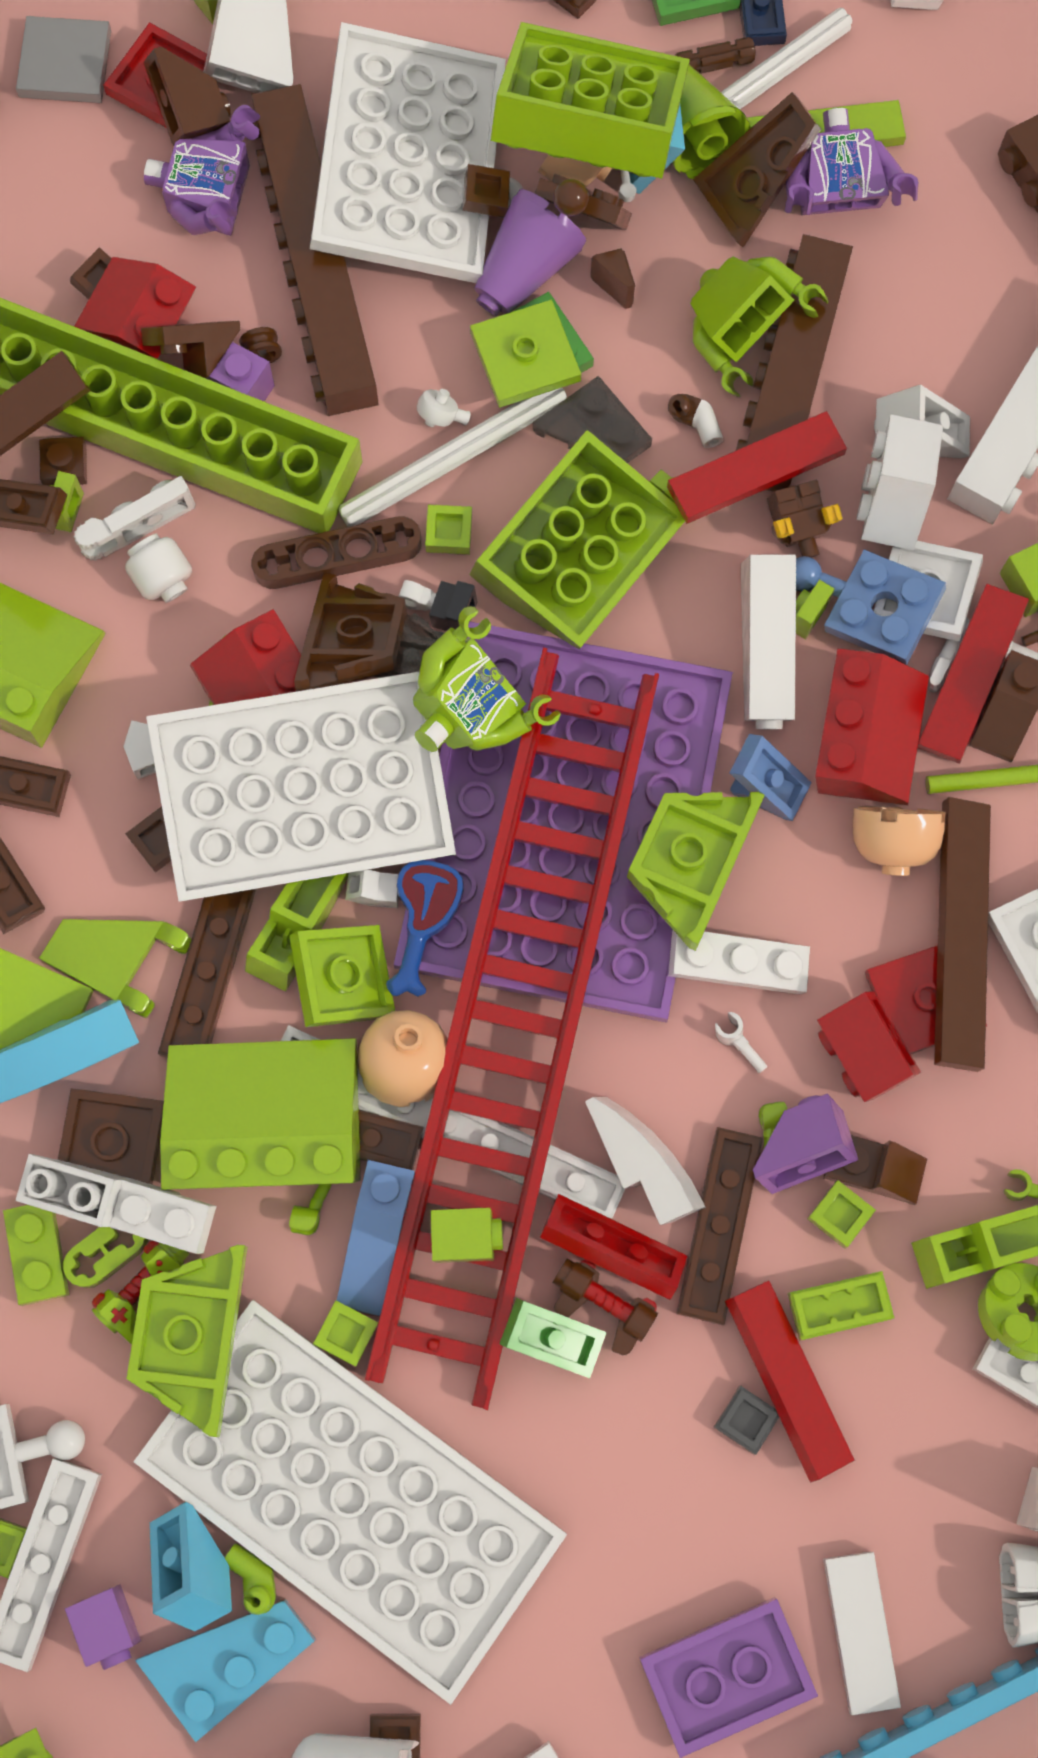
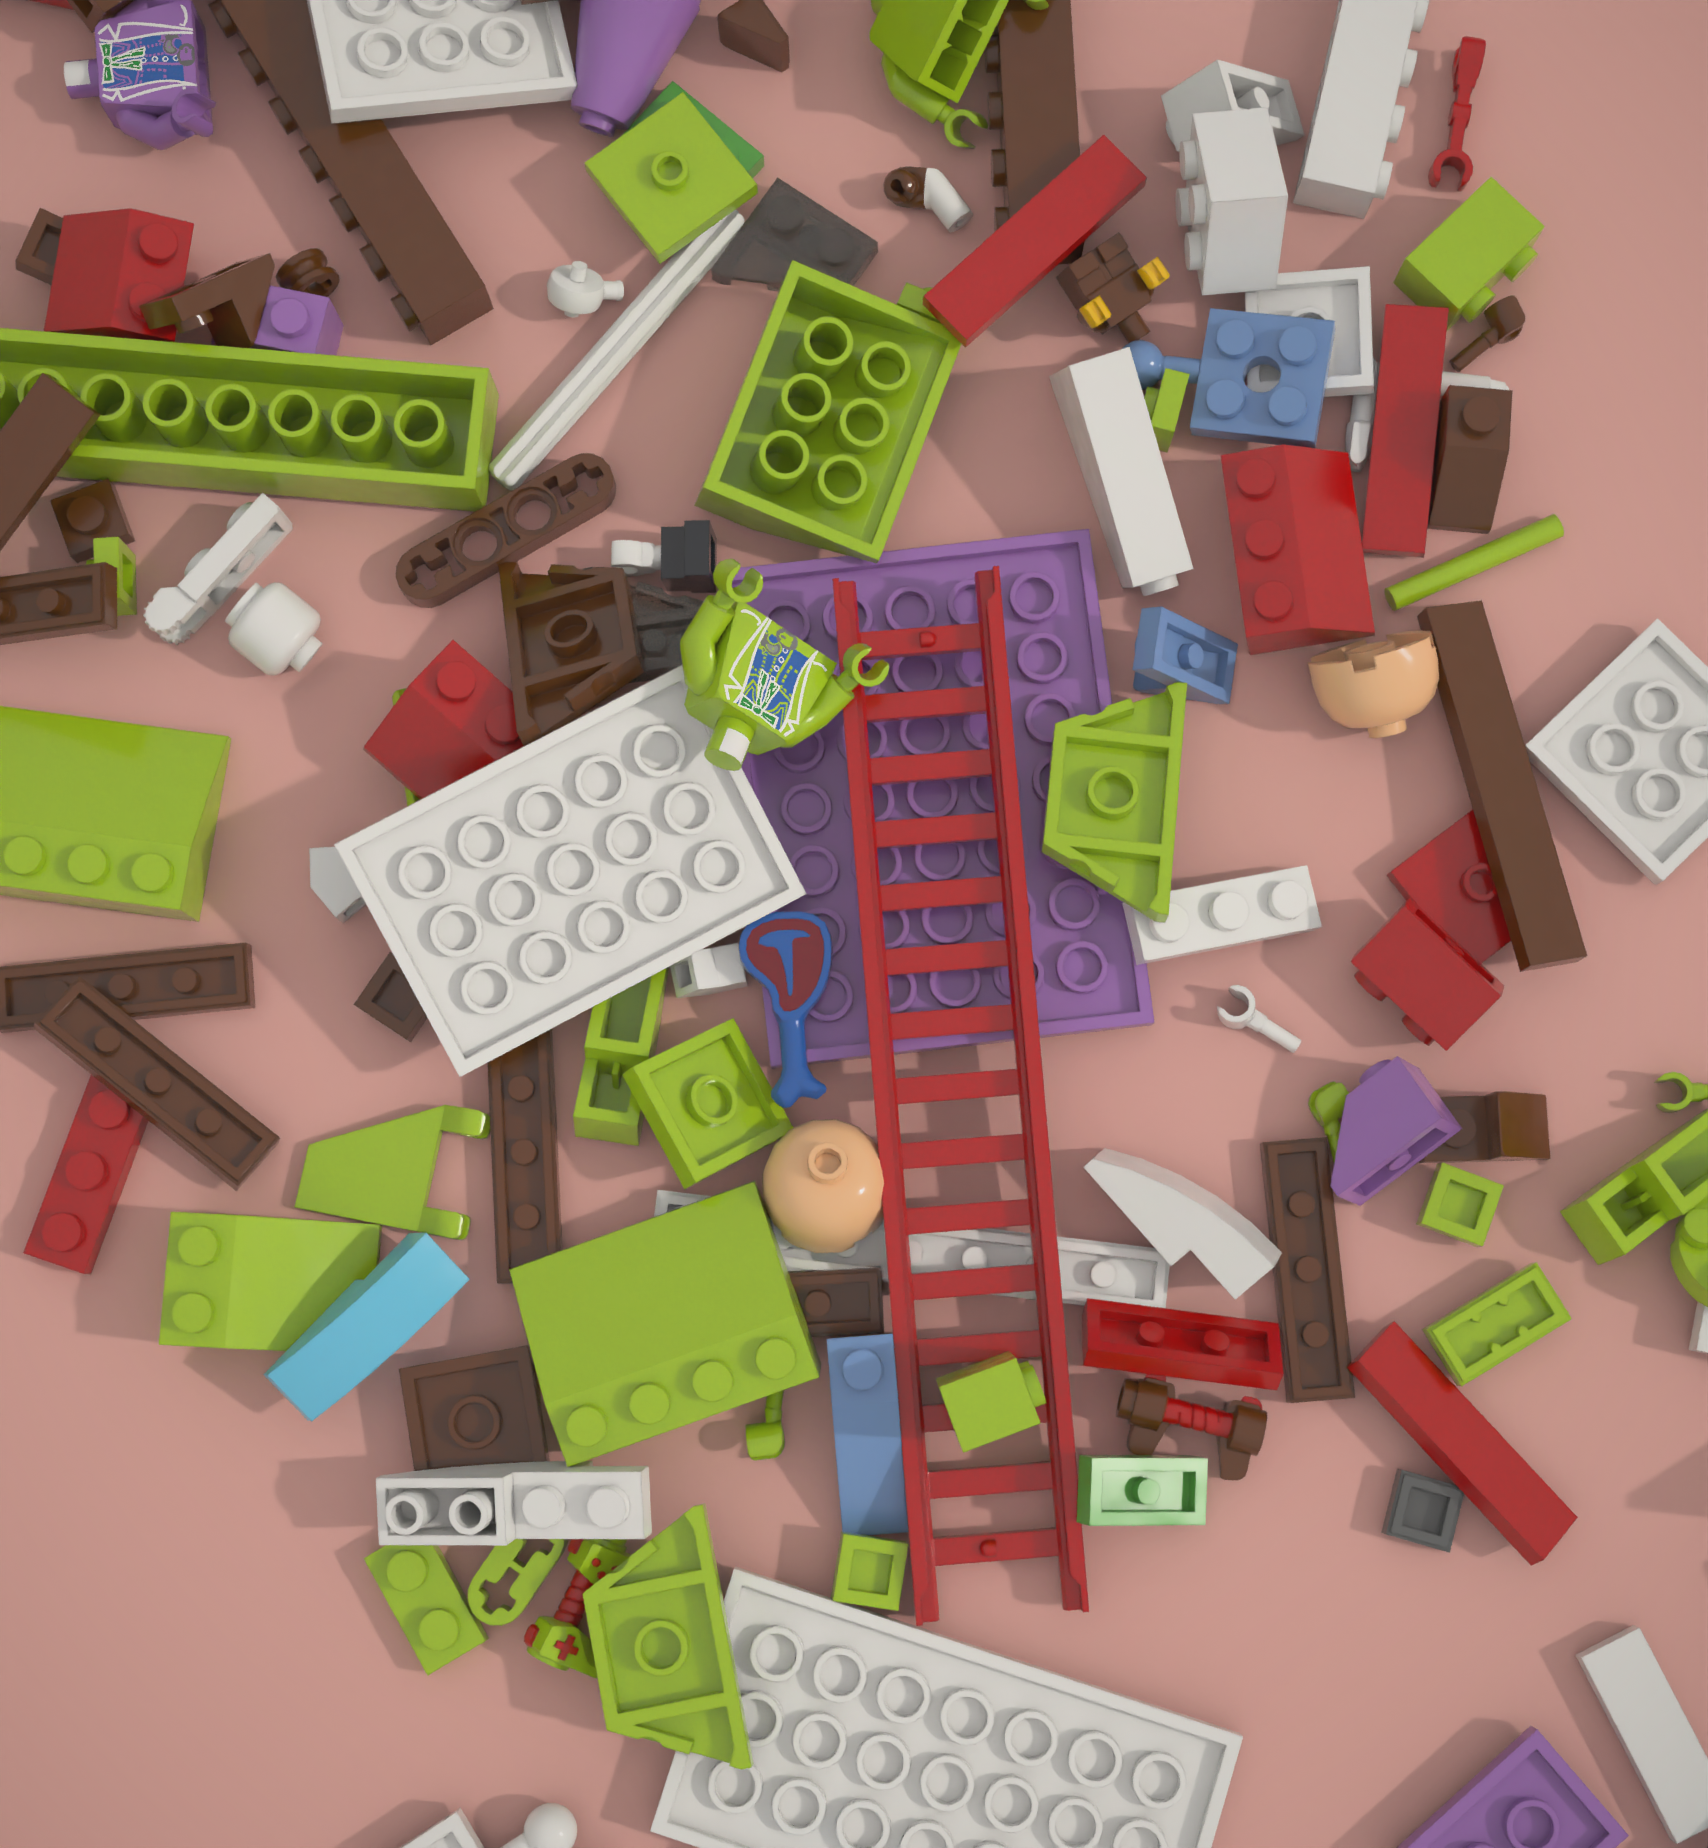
camera: 15 degrees left, 5 degrees up
(448, 529) = (647, 452): lime plate -> none

